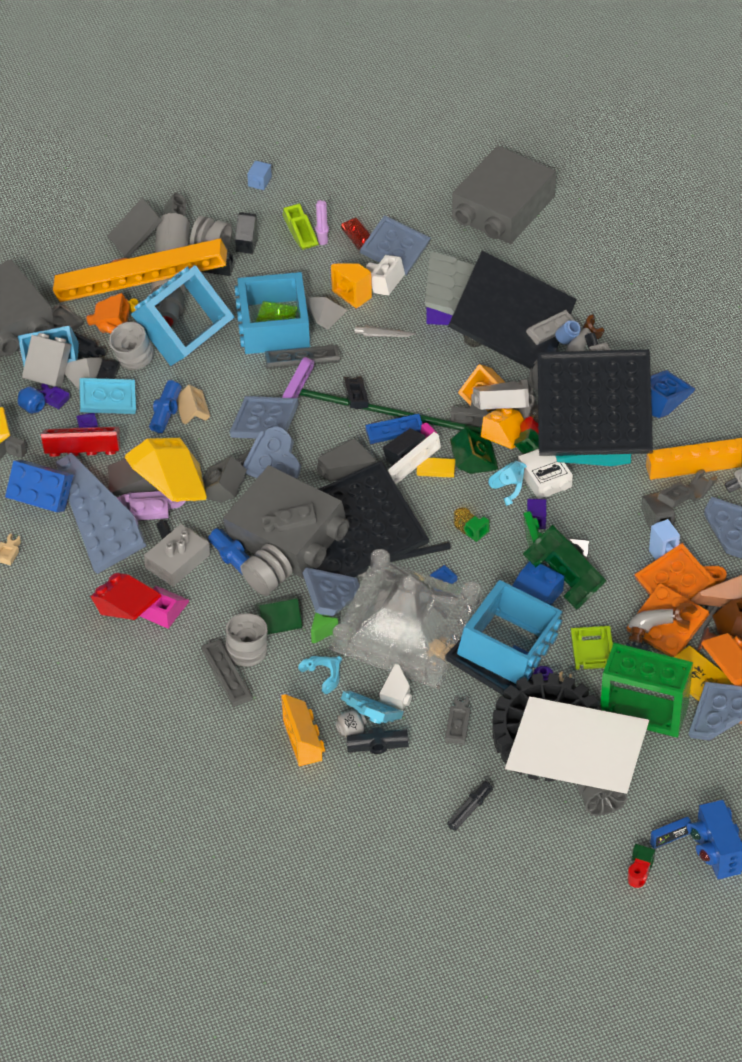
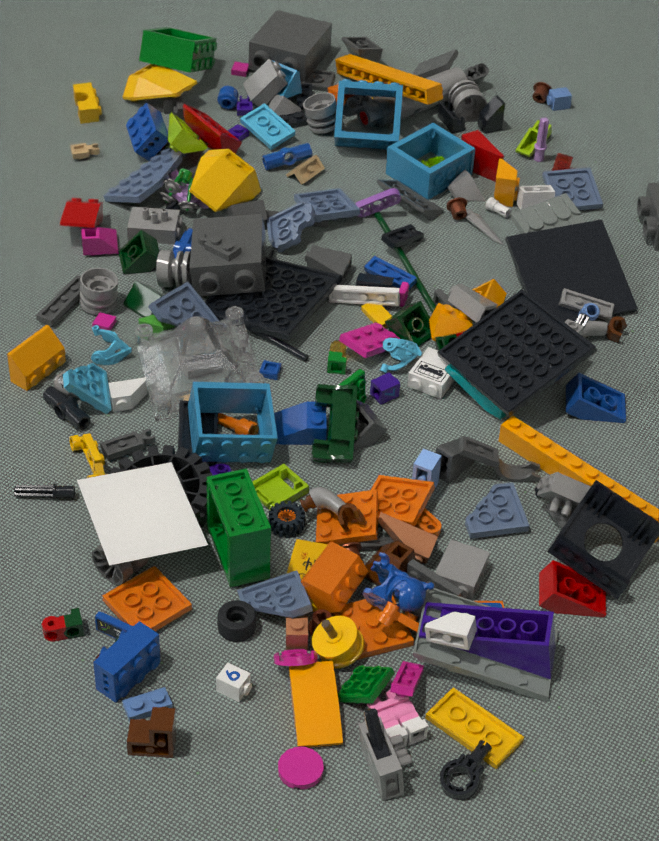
camera: 50 degrees right, 5 degrees down
(58, 261) = (363, 48): none -> dark grey slope
(78, 464) = (182, 137): none -> lime wedge
(149, 495) = (184, 177): none -> plant
(211, 587) = (139, 254): none -> dark green slope
(239, 181) = (541, 91): none -> copper piece
(279, 659) = (104, 321): none -> dark pink tile
(314, 271) = (486, 155): none -> red slope
(350, 334) = (458, 208): none -> copper piece
(370, 307) = (494, 206): none -> white pin
(461, 750) = (90, 449): none -> yellow plate
(471, 489) = (367, 339): none -> dark pink plate
(506, 631) = (241, 426): none -> orange piece
(656, 798) = (148, 600): none -> orange plate
(718, 760) = (236, 611): none -> black tyre

